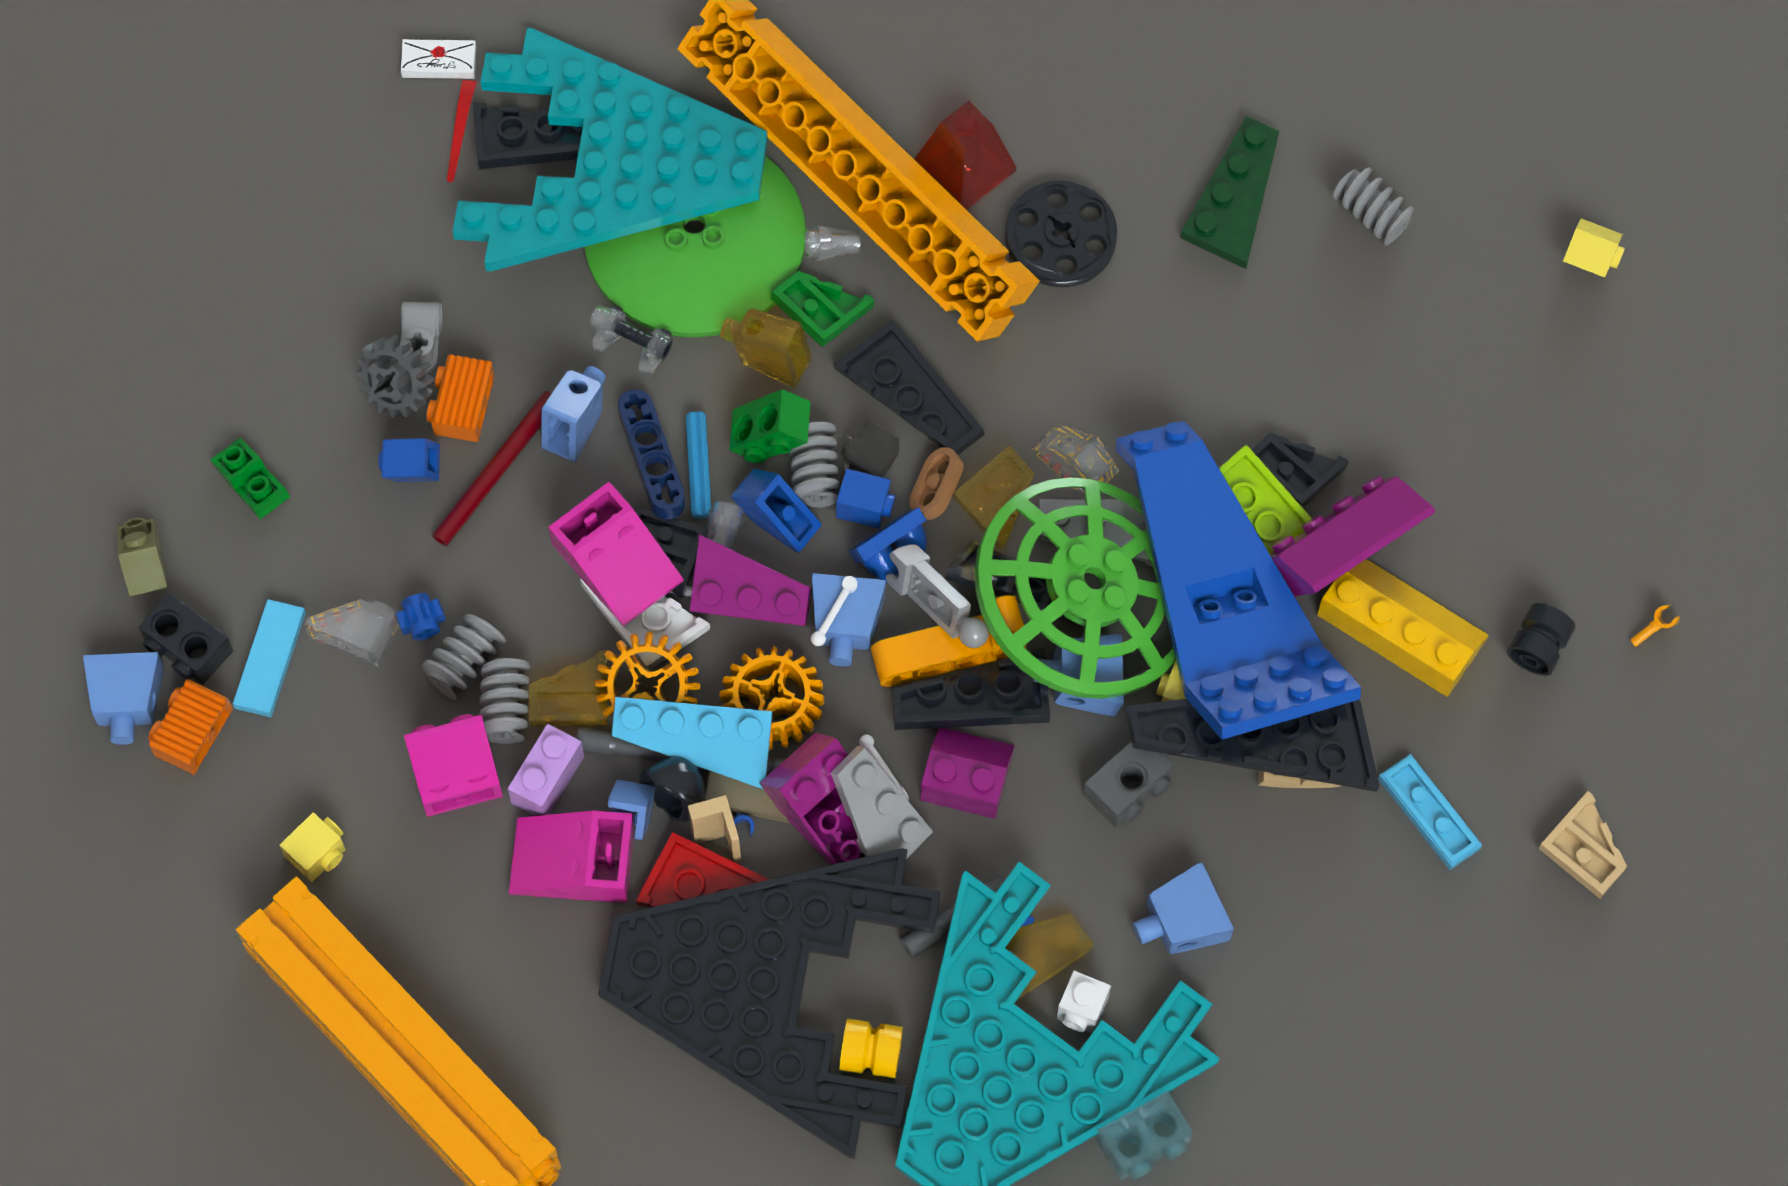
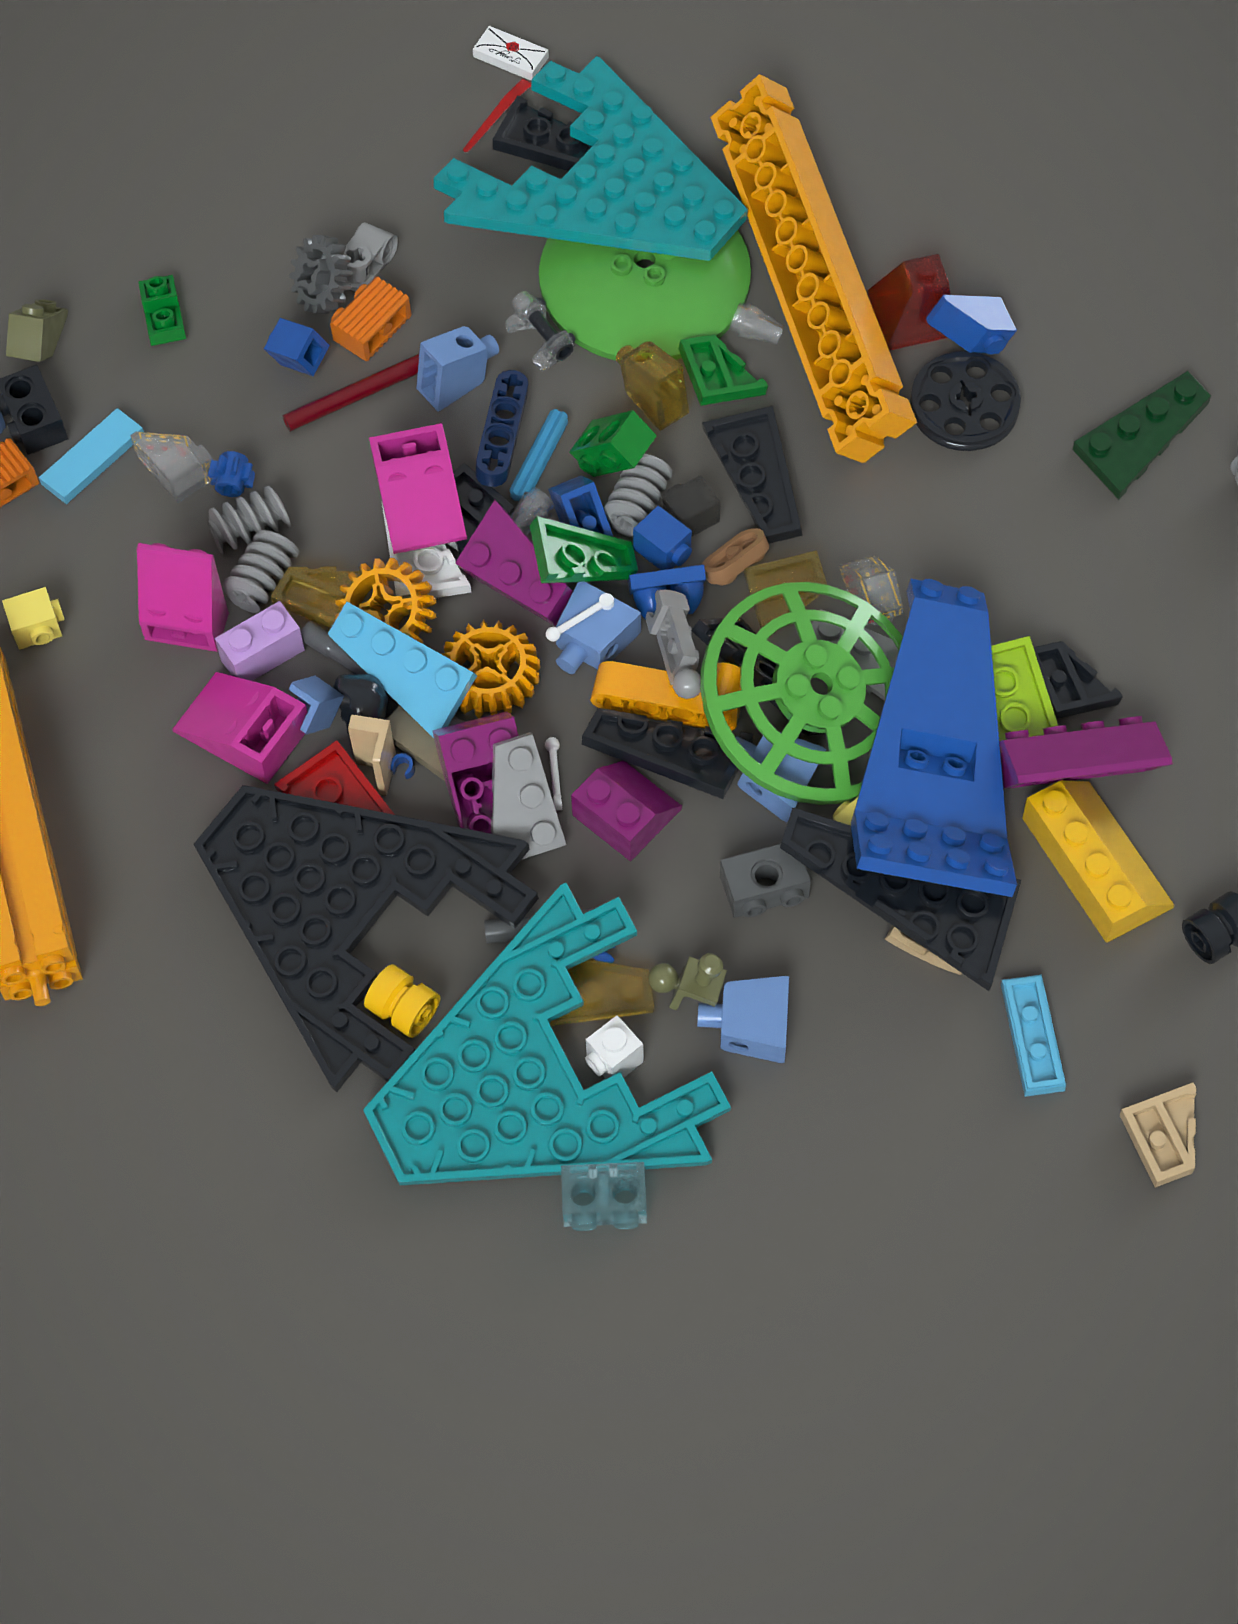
camera: 30 degrees right, 5 degrees down
(800, 549) = (578, 554): none -> green wing
(1035, 154) = (973, 322): none -> blue slope
(1116, 905) = (697, 980): none -> olive piece

